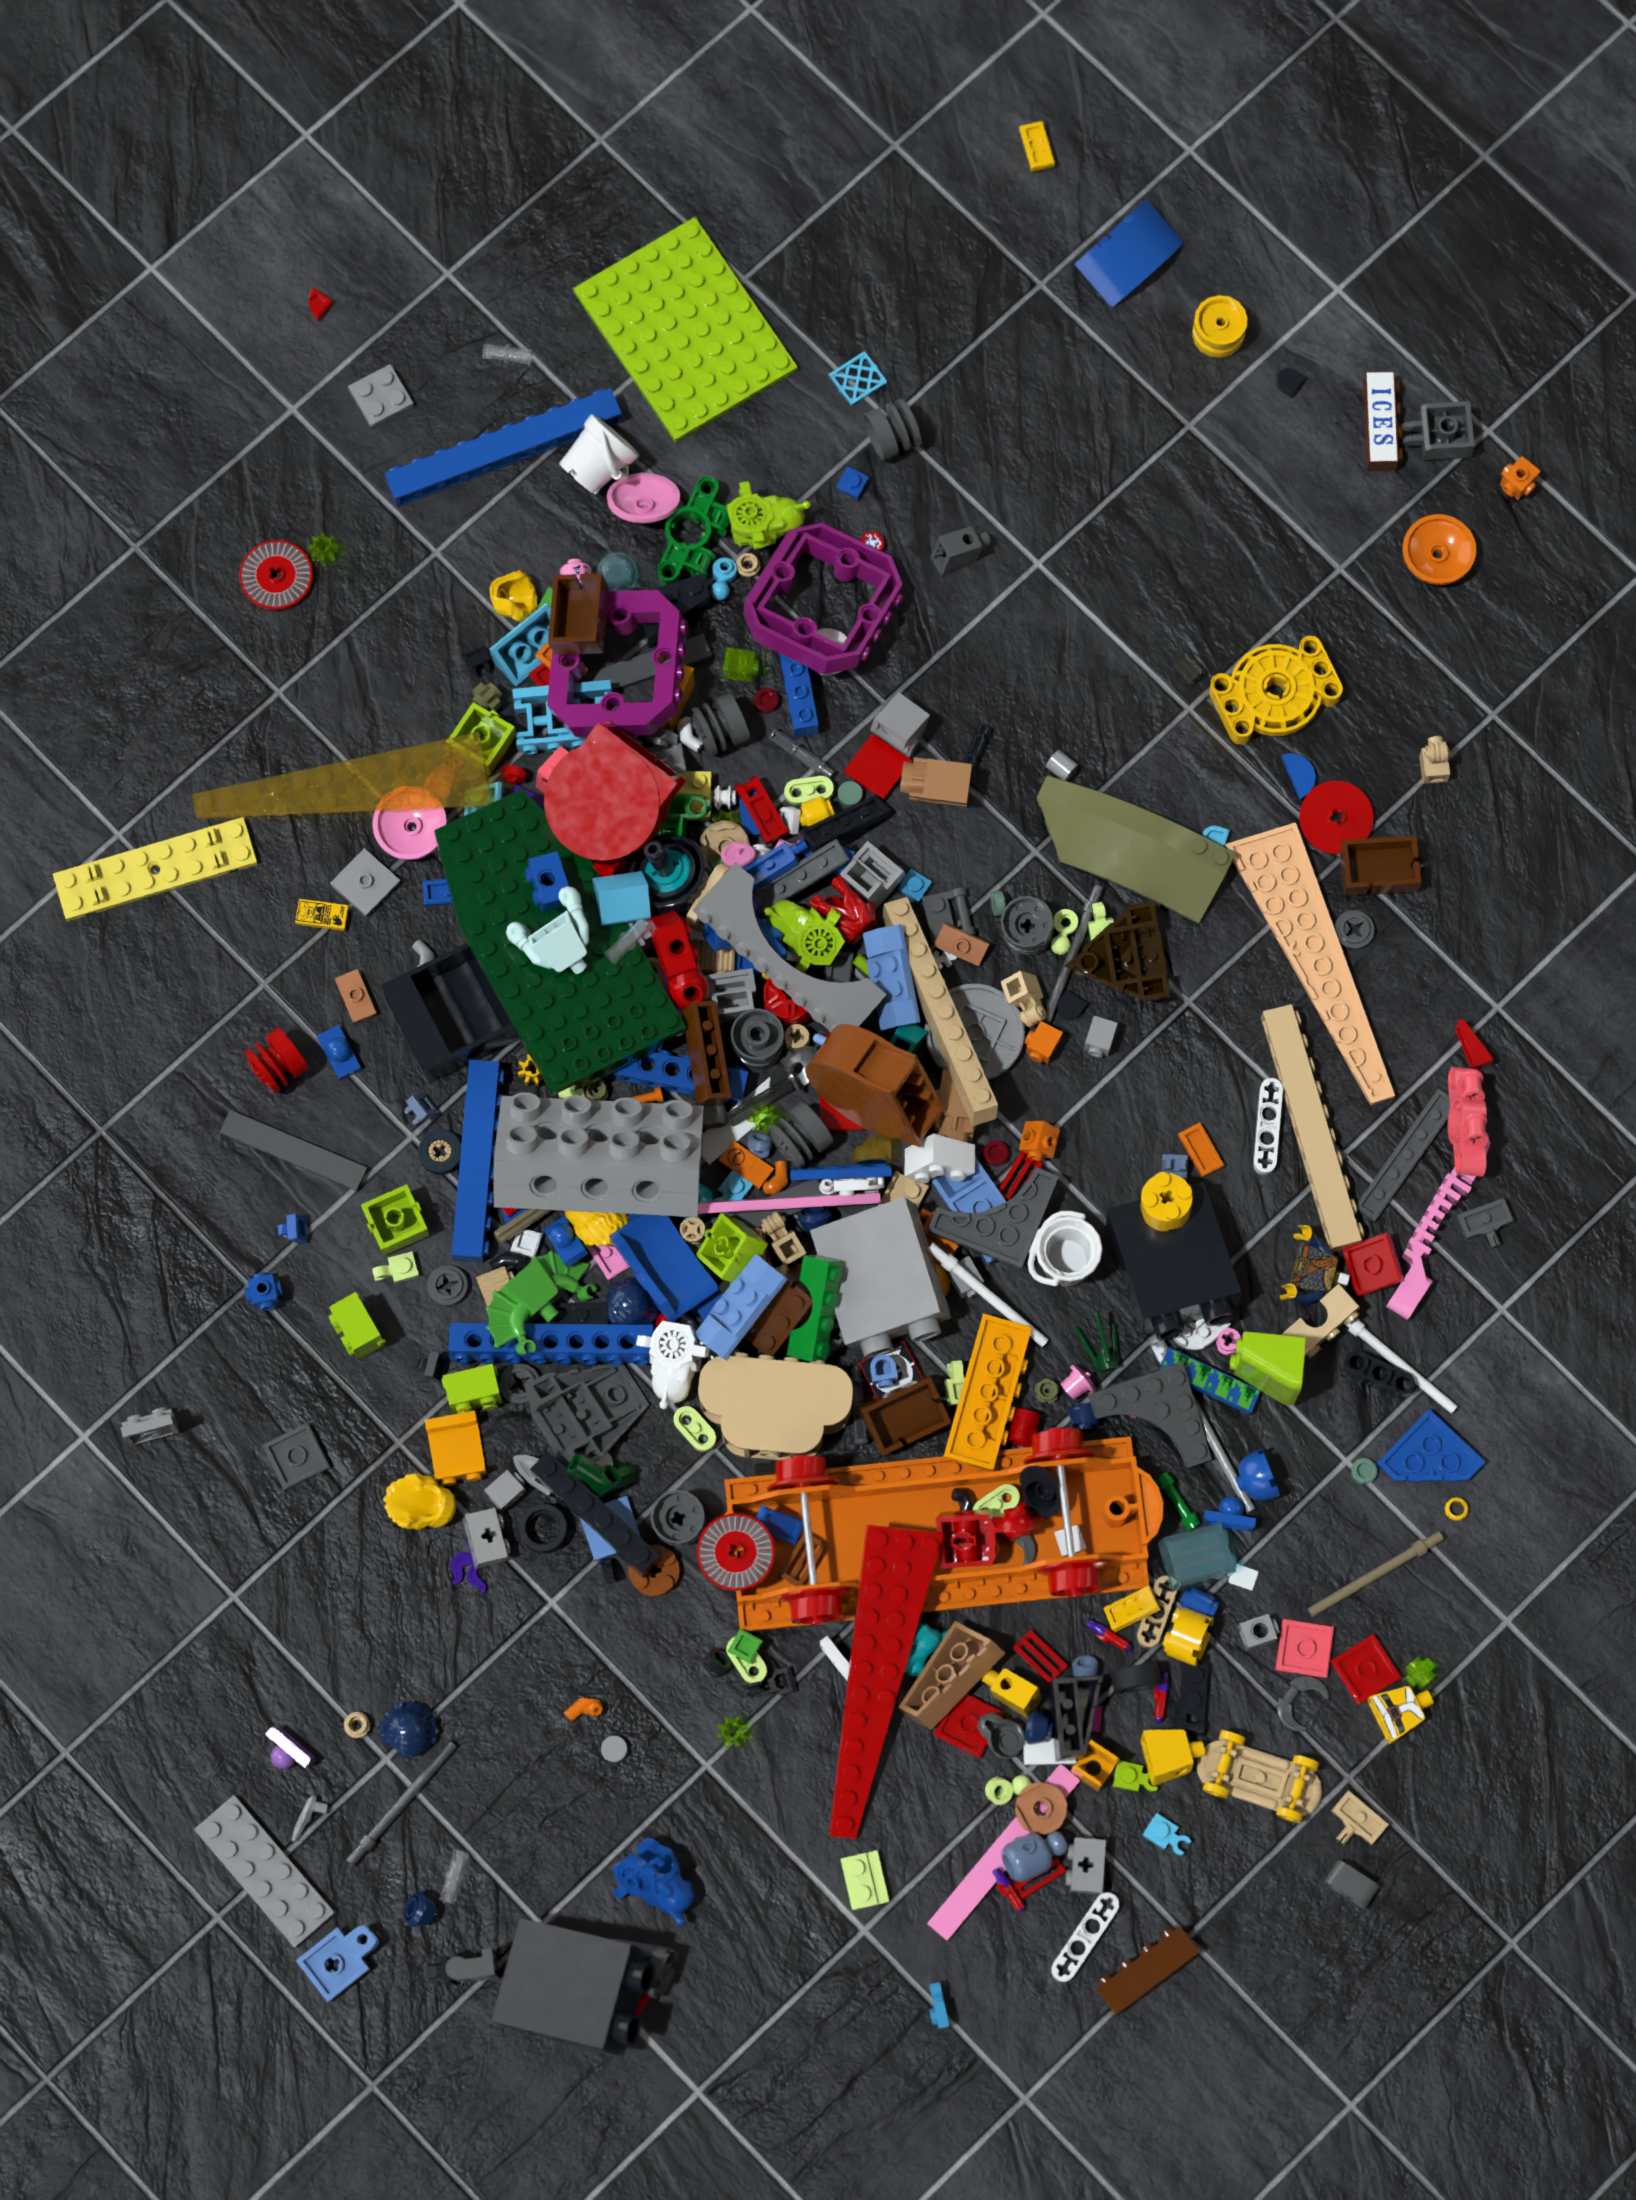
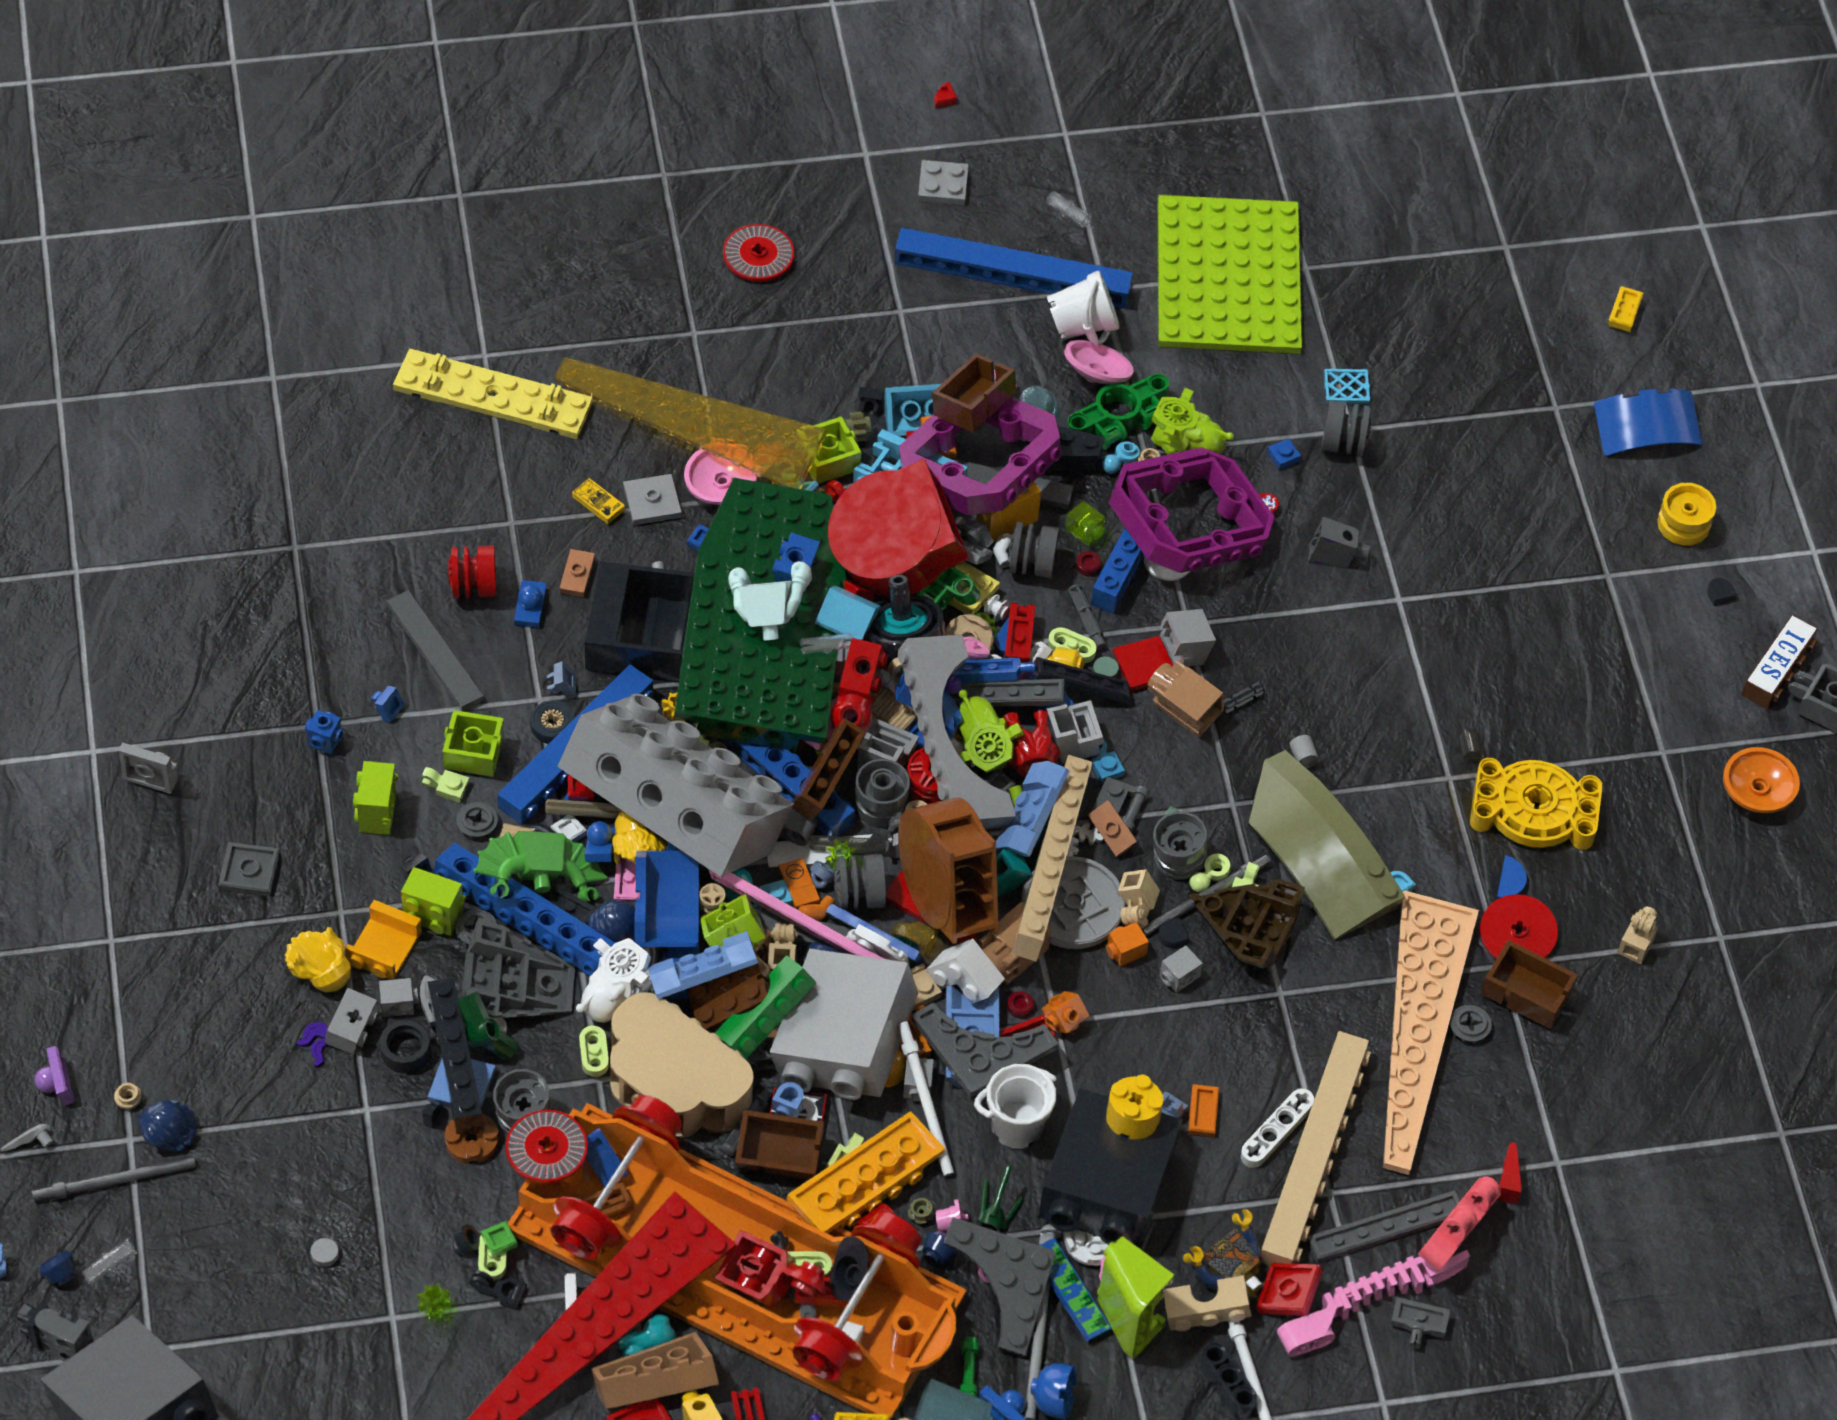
camera: 30 degrees right, 20 degrees down
(328, 551) = (810, 254): clear neon green gear -> none
(513, 596) = (935, 364): yellow hair -> none
(584, 1706) = (327, 1203): orange arm -> none
(655, 1879) = (271, 1371): blue helmet -> none

